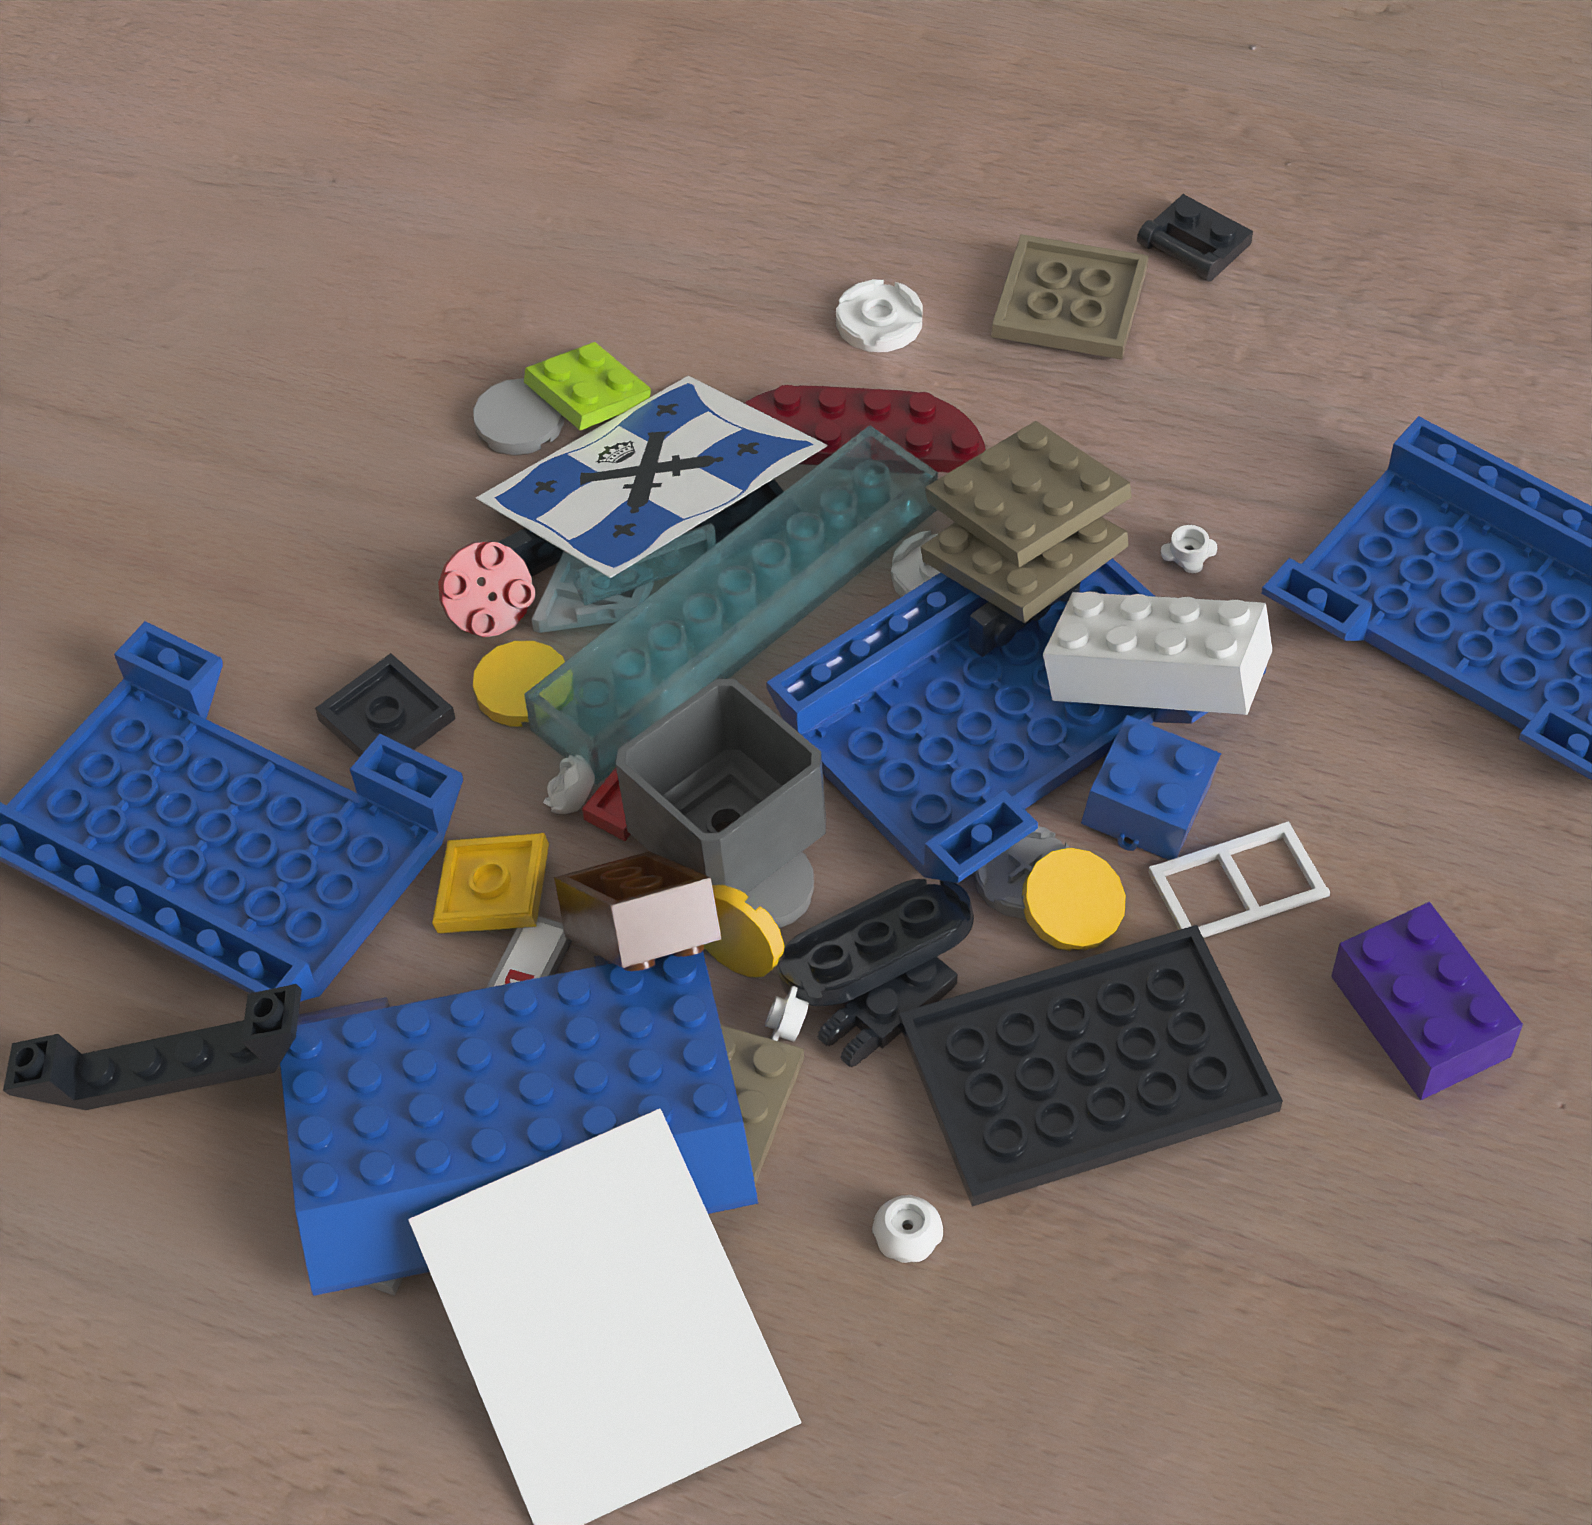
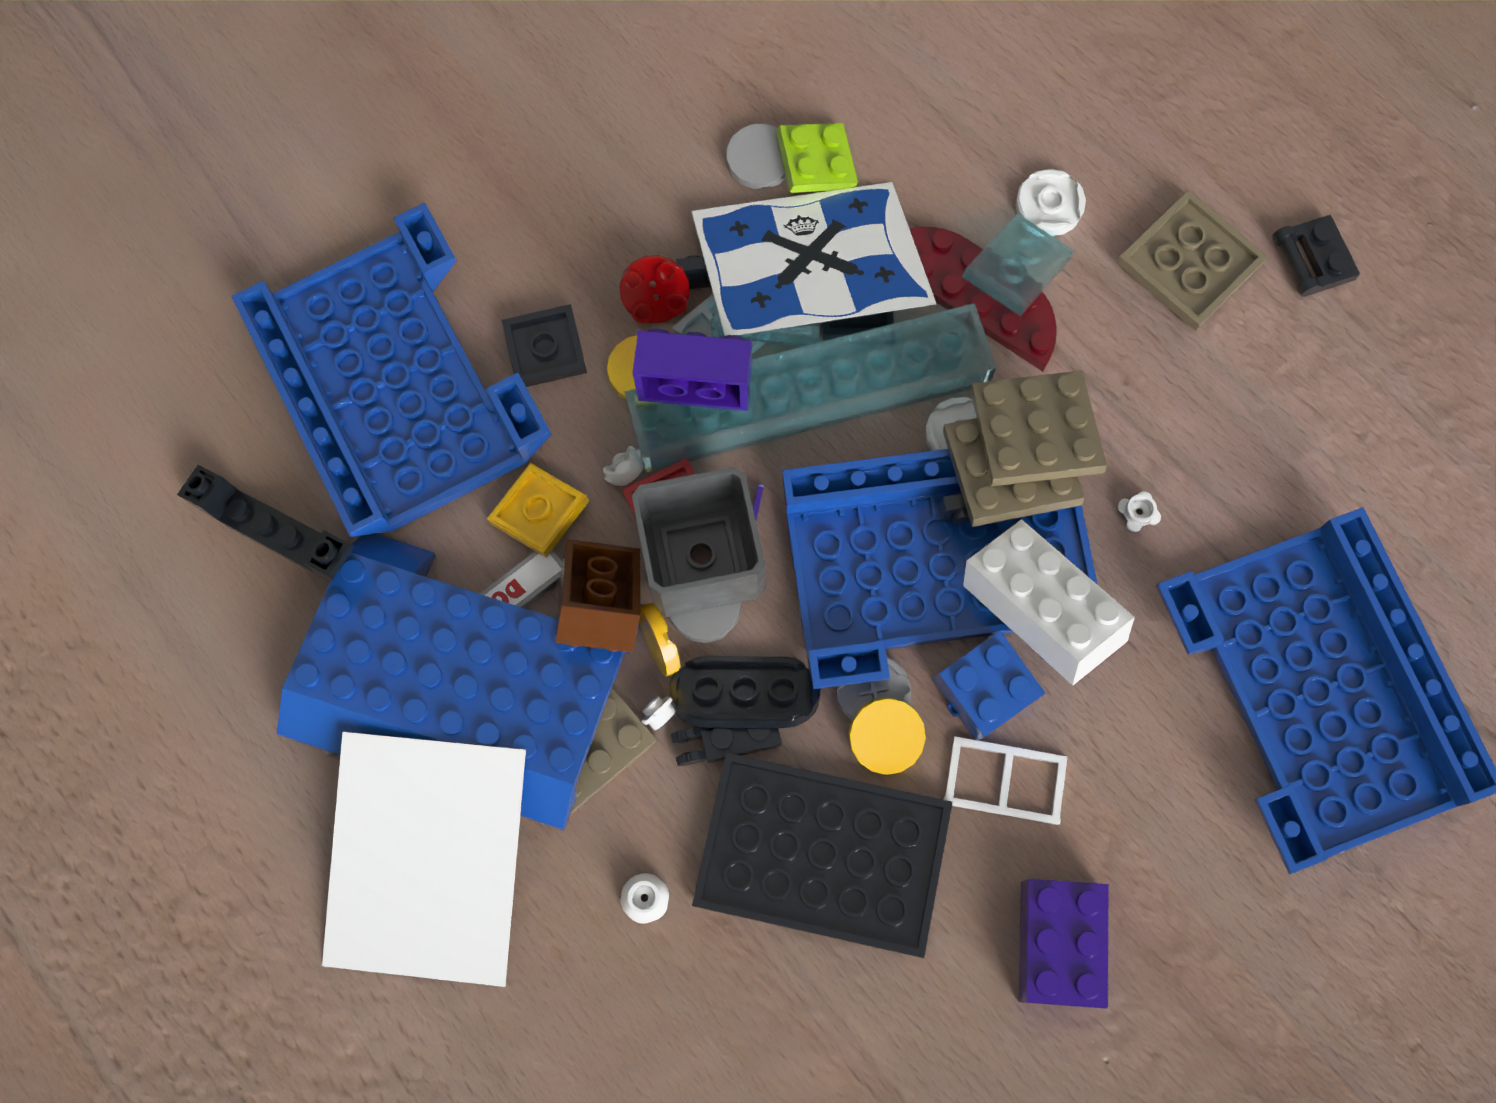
camera: 30 degrees right, 20 degrees up
(601, 616) = (693, 369): none -> dark purple brick
(888, 378) = (1018, 264): none -> clear light blue tile

